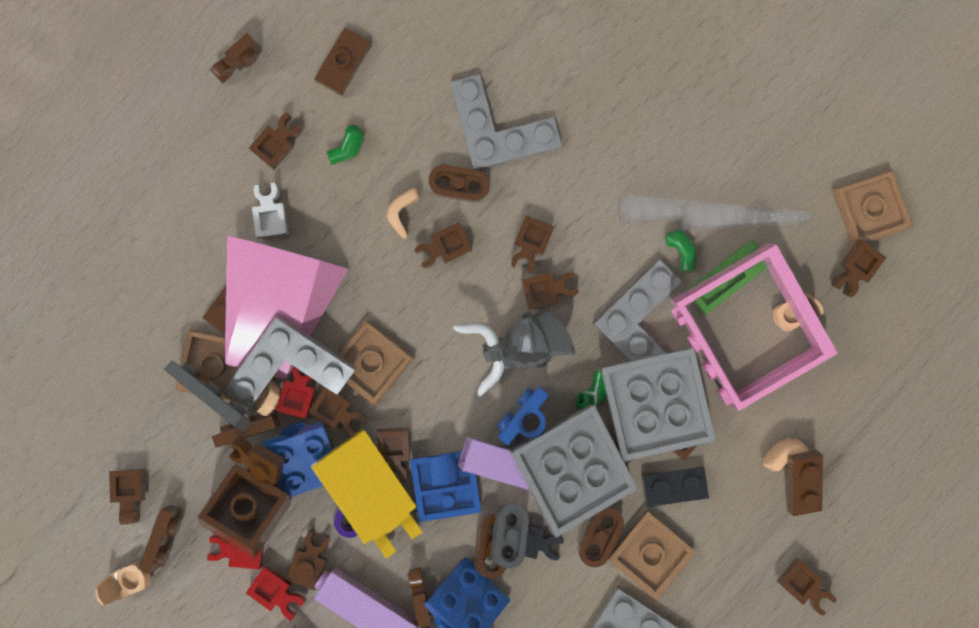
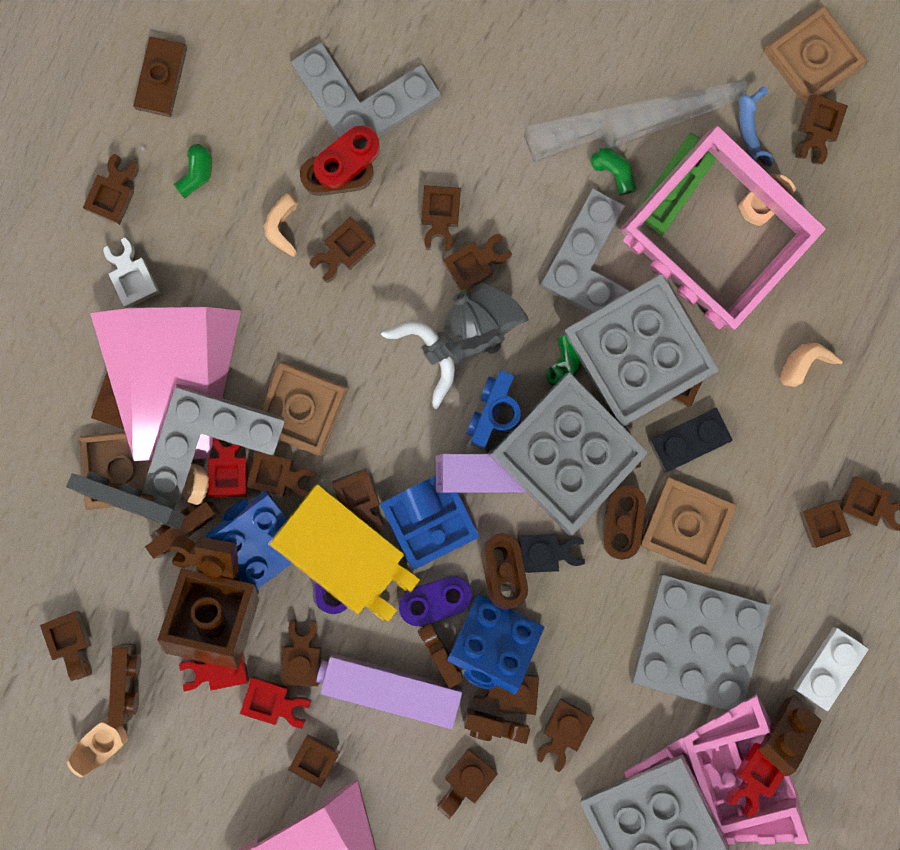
camera: 15 degrees left, 0 degrees up
(238, 56) = (38, 106): reddish brown plate -> none
(429, 551) = (434, 598): none -> dark purple plate
(471, 174) = (350, 159): none -> red plate
(510, 535) = (524, 552): dark grey plate -> none
(762, 589) = (825, 524): none -> reddish brown plate
(800, 247) = (747, 126): none -> medium blue piece
(805, 482) = (835, 388): reddish brown plate -> none

